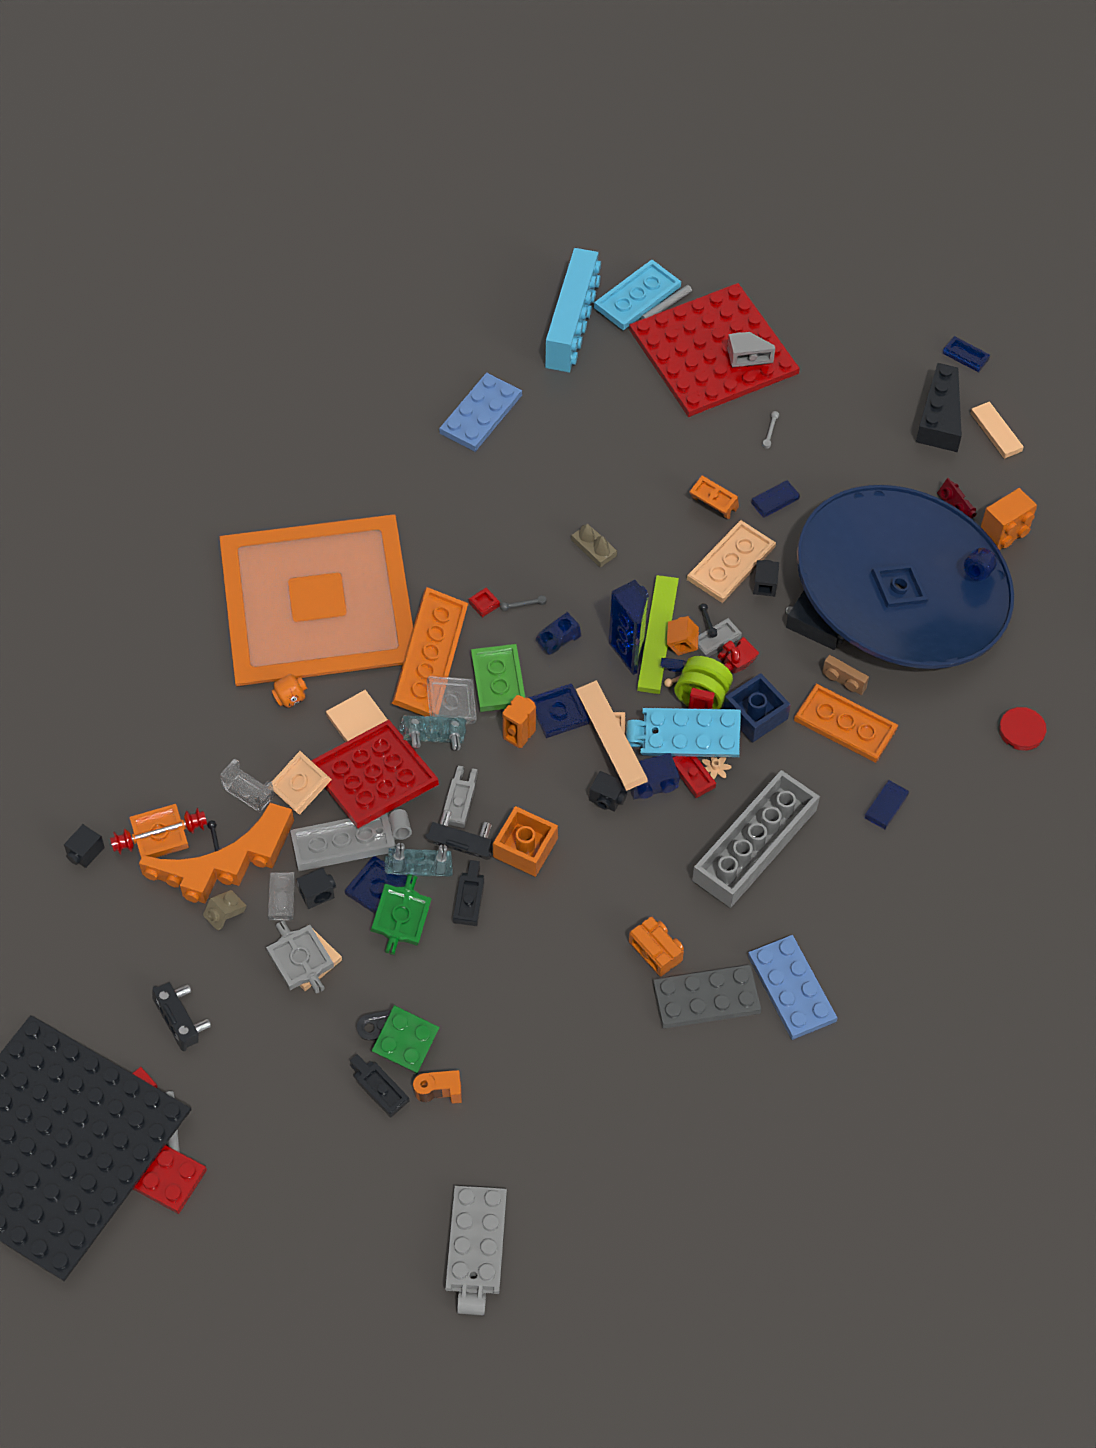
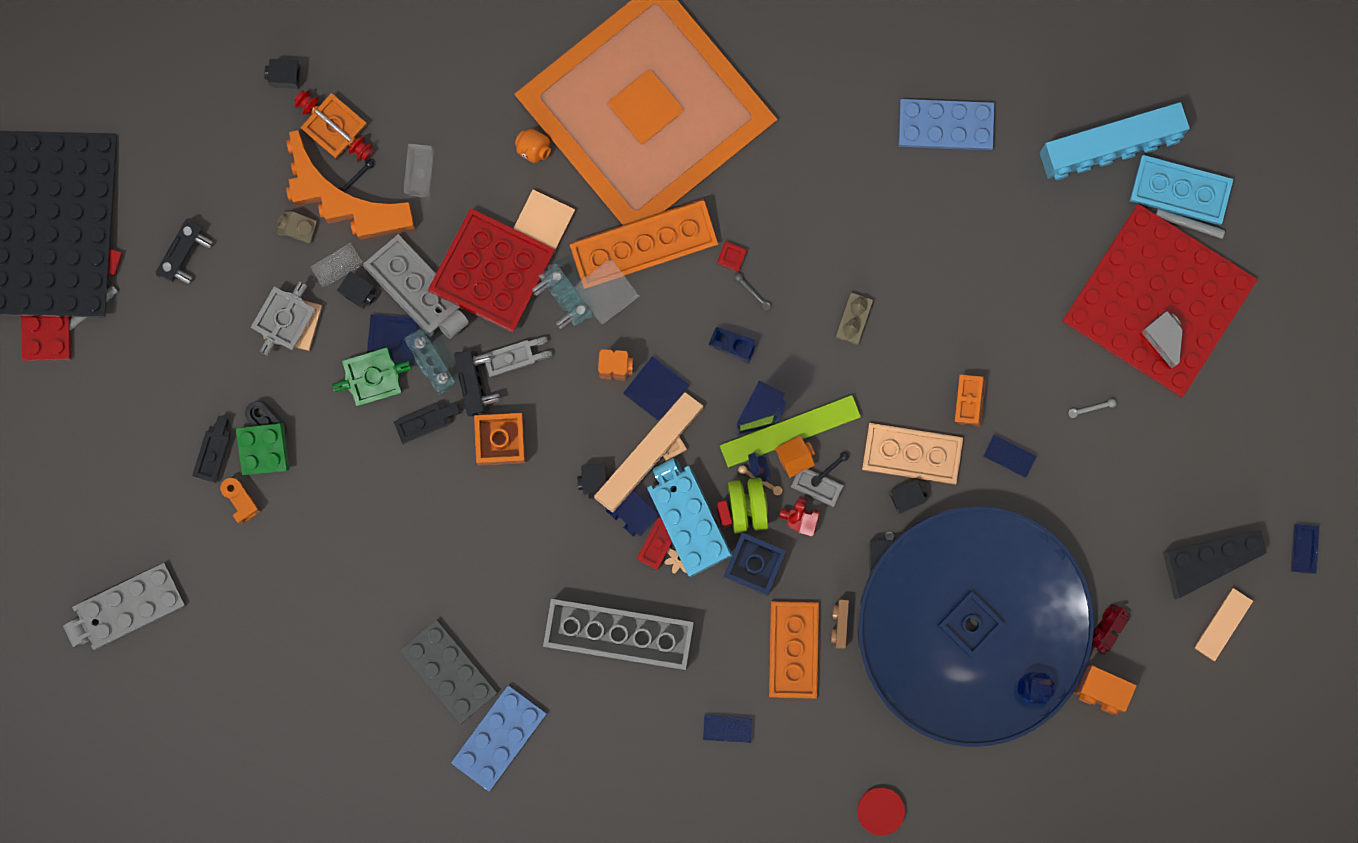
camera: 60 degrees right, 25 degrees up
(300, 782) = (446, 213): light nougat tile -> none
(497, 676) = (656, 317): bright green plate -> none
(656, 946) = (467, 605): orange brick -> none

